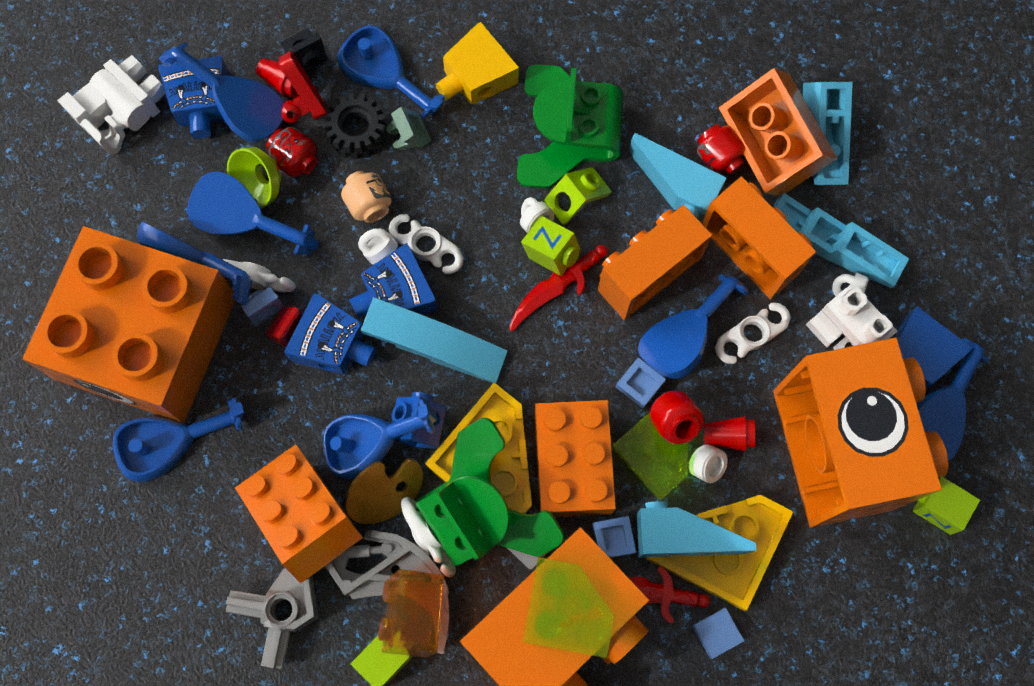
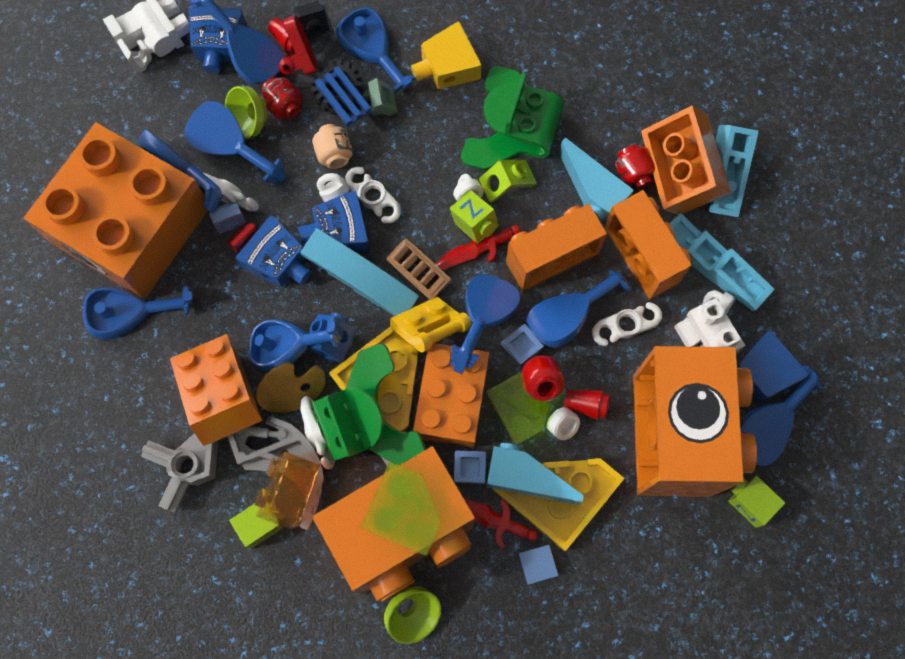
camera: 15 degrees right, 0 degrees up
(347, 118) = (331, 79): none -> blue tile
(474, 306) = (401, 252): none -> medium nougat slope
(524, 375) = (429, 323): none -> yellow plate
(592, 344) = (488, 303): none -> blue piece

